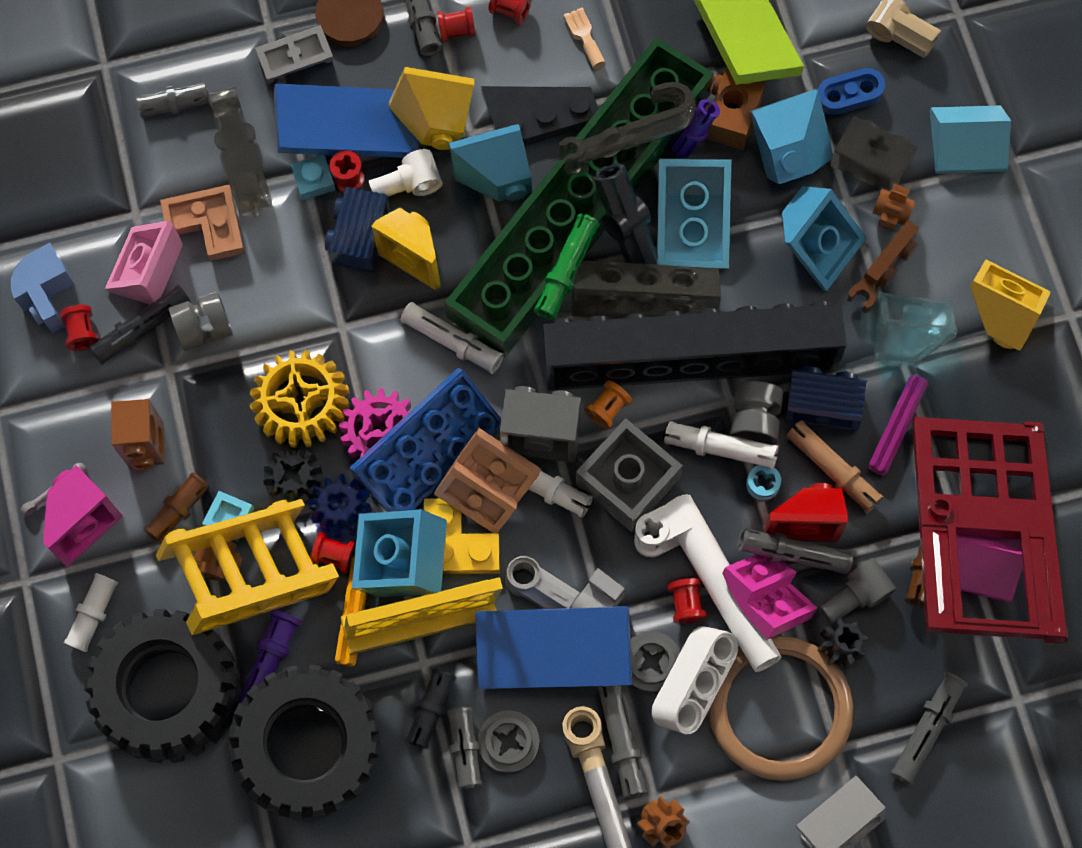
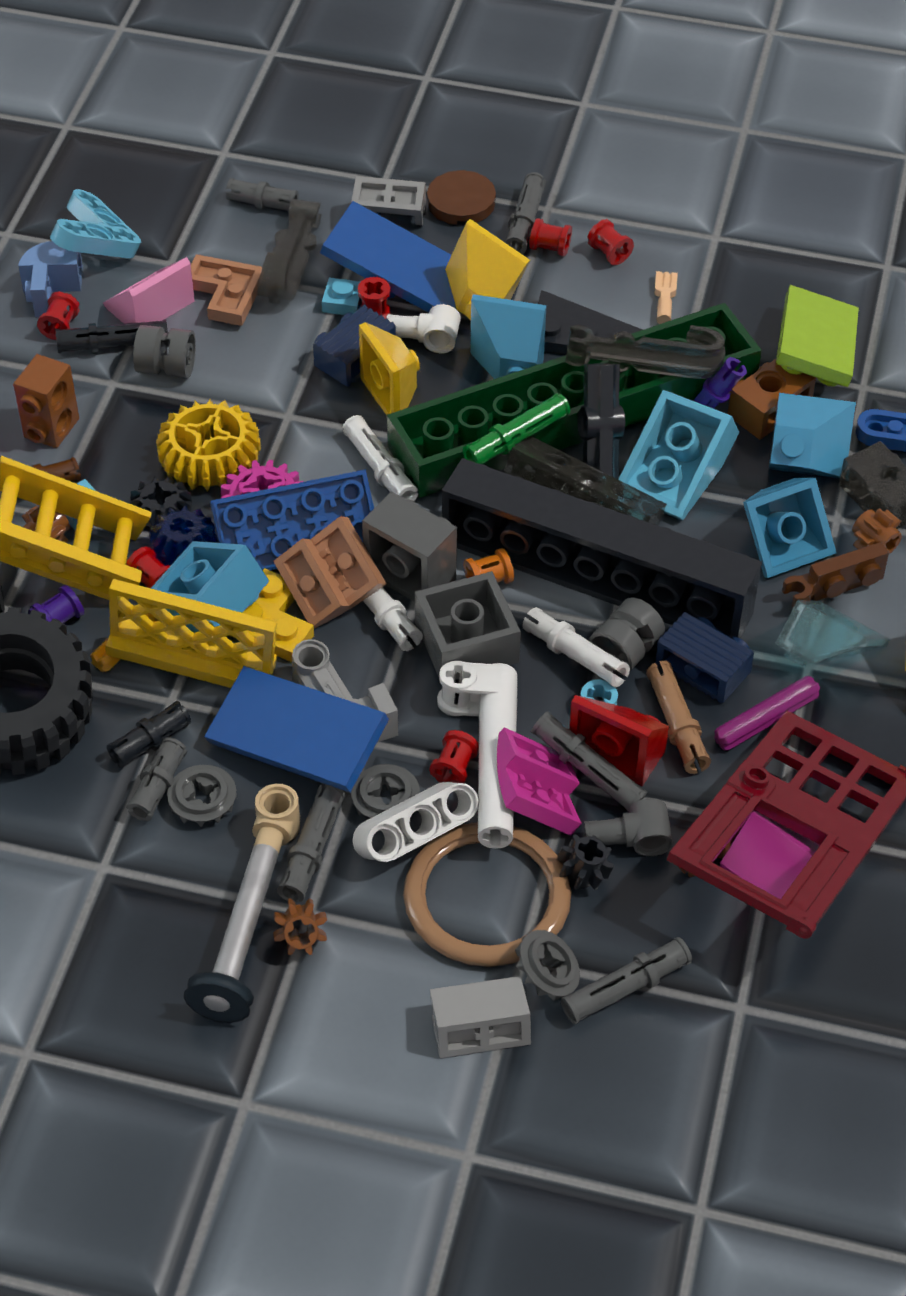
camera: 25 degrees right, 20 degrees down
(36, 200) = (97, 230): none -> medium azure beam
(881, 752) = (554, 953): none -> dark grey gear

